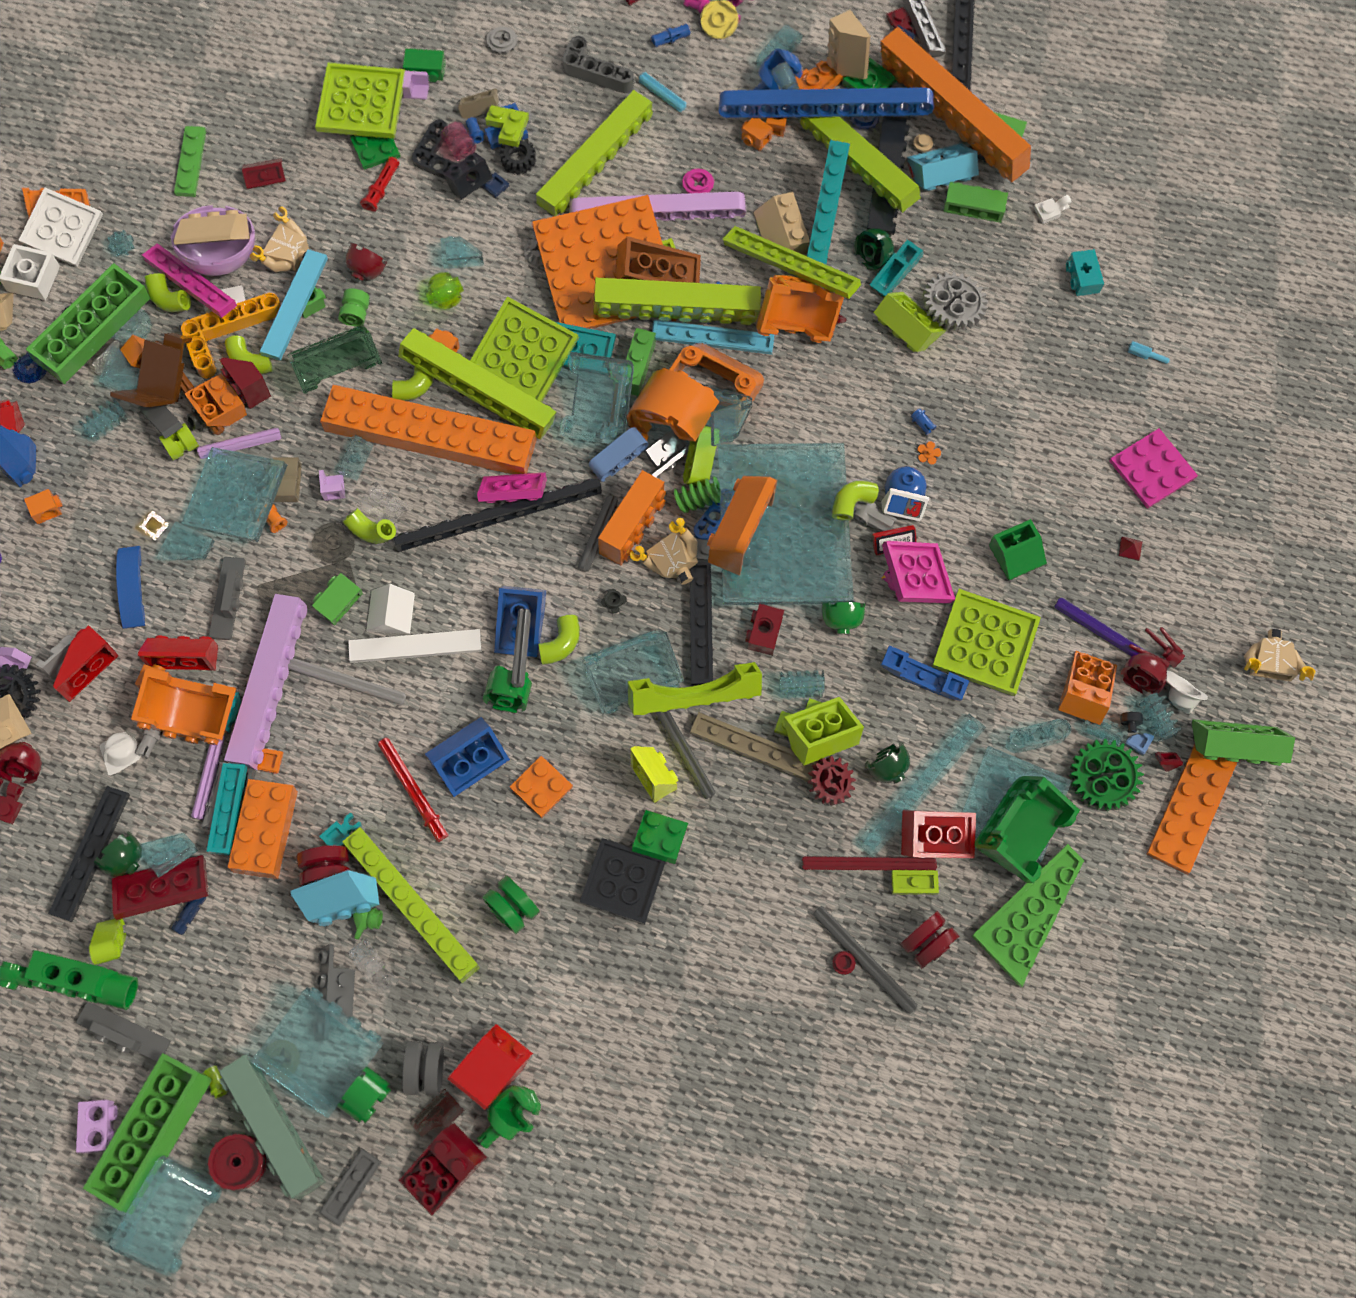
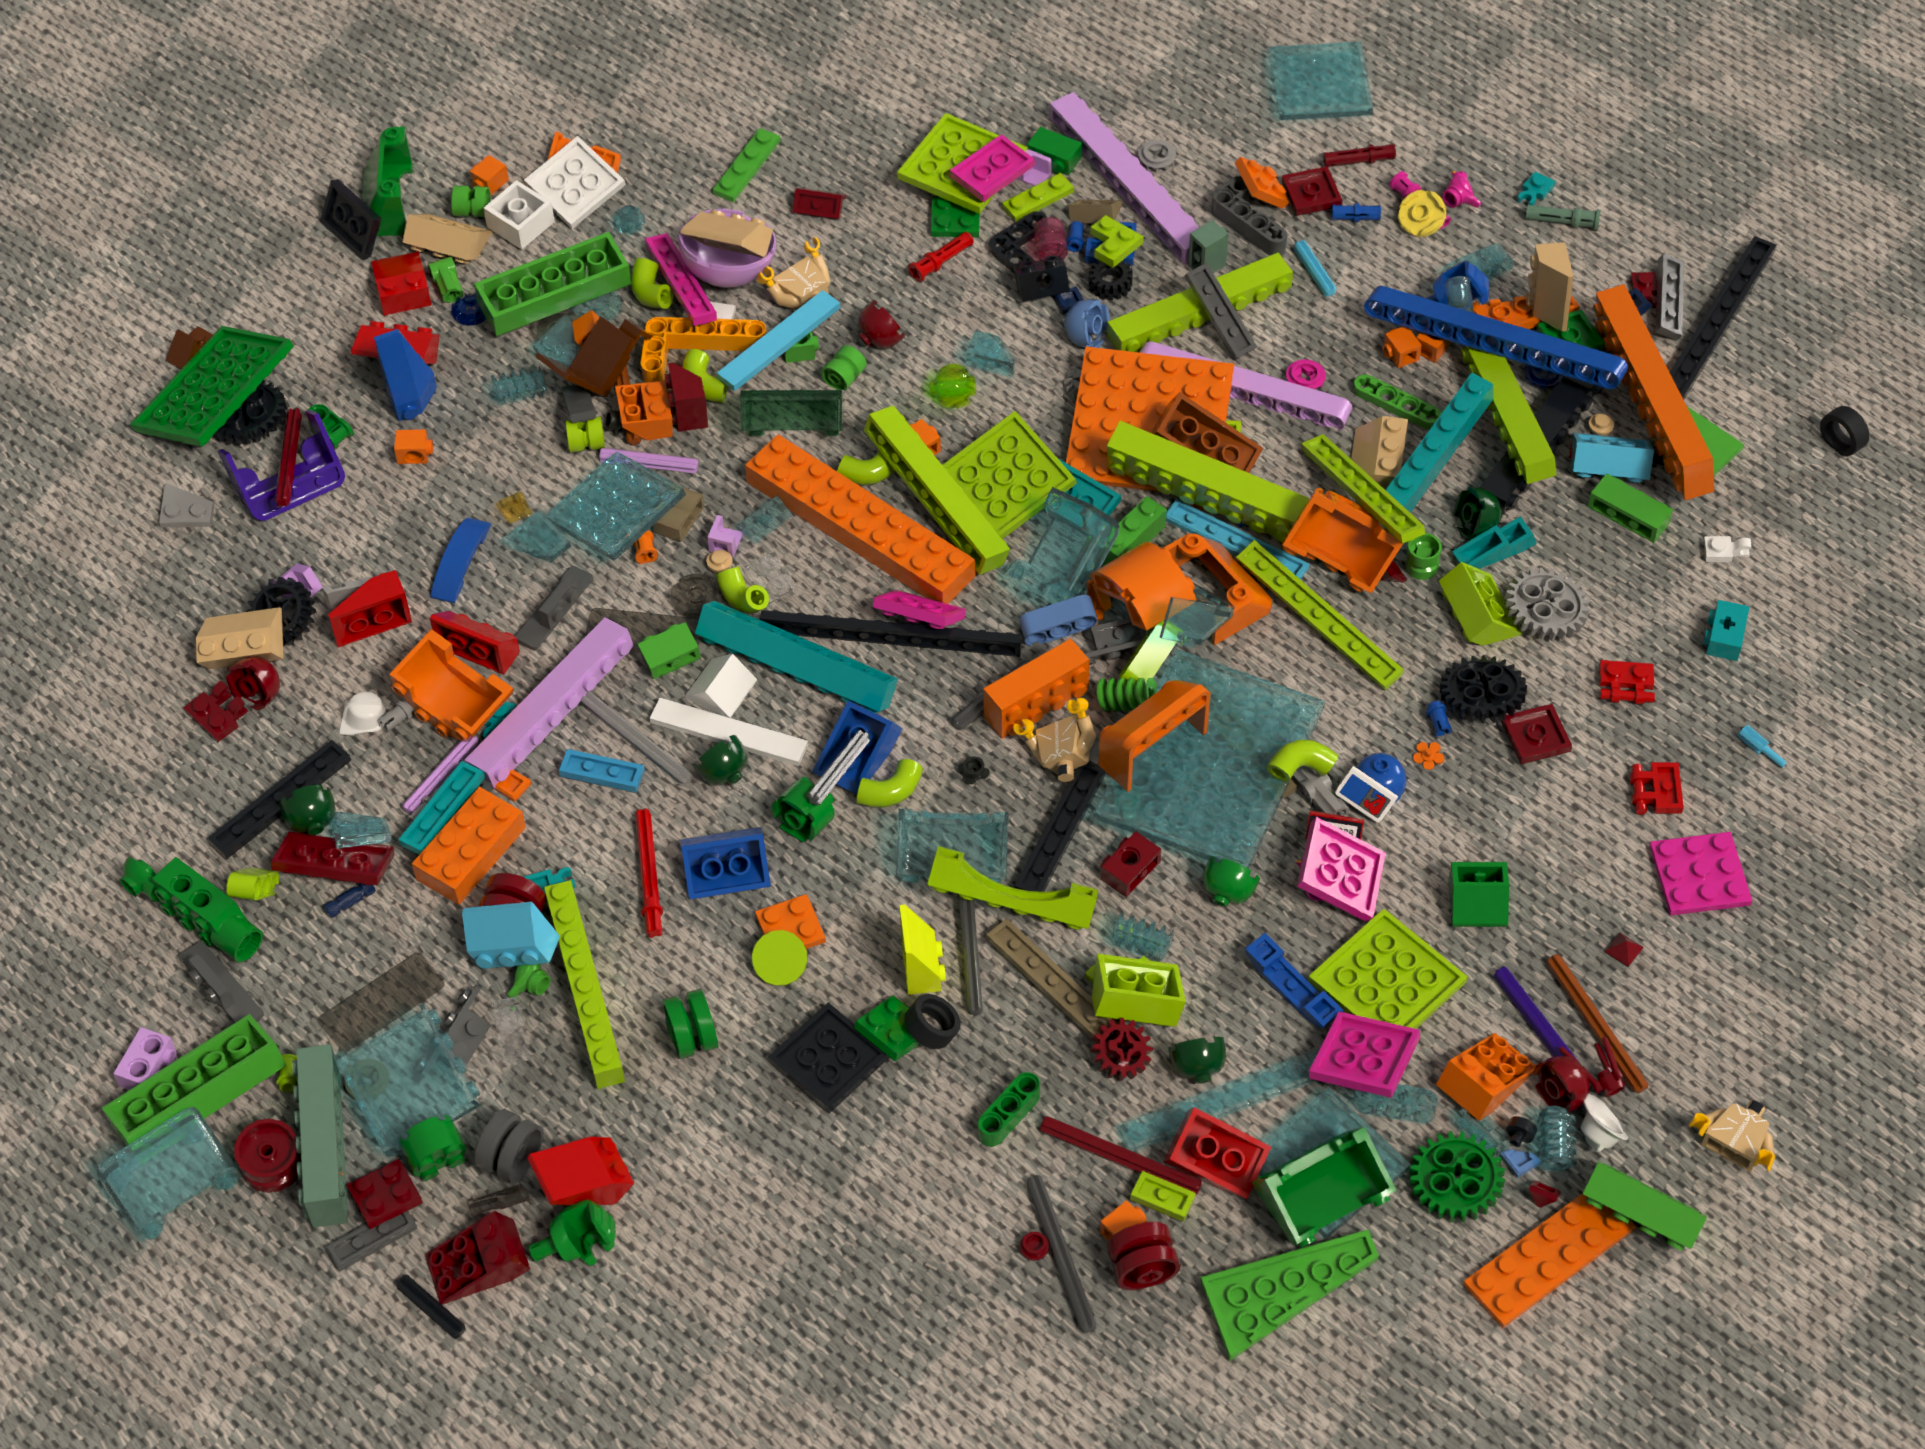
camera: 30 degrees right, 15 degrees down
(258, 988) = (381, 1002): none -> clear smoke piece
(334, 720) = (601, 770): none -> dark azure plate
(337, 506) = (719, 561): none -> tan plate
(343, 1148) = (384, 1193): none -> dark red plate
(388, 97) = (992, 168): none -> dark pink plate
(425, 1222) = (431, 1306): none -> black axle
(426, 676) = (723, 763): none -> dark green cylinder
(429, 107) = (1038, 197): none -> lime plate
(437, 564) = (796, 656): none -> teal brick
(491, 66) = (1125, 173): none -> lavender brick
(517, 198) = (1085, 319): none -> medium blue cylinder
(548, 817) = (779, 958): none -> lime tile
(581, 106) = (1208, 246): none -> sand green brick
(592, 35) = (1262, 182): none -> orange plate
(615, 154) = (1220, 311): none -> dark grey plate
(630, 29) = (1311, 190): none -> dark red plate
(681, 831) = (925, 1032): none -> black tyre
(773, 175) = (1399, 399): none -> bright green beam
(779, 855) = (1013, 1098): none -> green beam
(802, 373) = (1320, 615): none -> lime plate
(857, 301) = (1423, 557): none -> bright green wheel
(901, 919) = (1121, 1218): none -> orange brick
(950, 386) = (1466, 694): none -> black gear
(995, 406) = (1536, 734): none -> dark red plate
(1005, 712) = (1364, 1054): none -> dark pink plate
(1033, 334) = (1626, 675): none -> red plate
(1094, 76) = (1852, 422): none -> black tyre
(1101, 412) = (1666, 788): none -> red plate
(1139, 612) = (1596, 1022): none -> dark orange axle

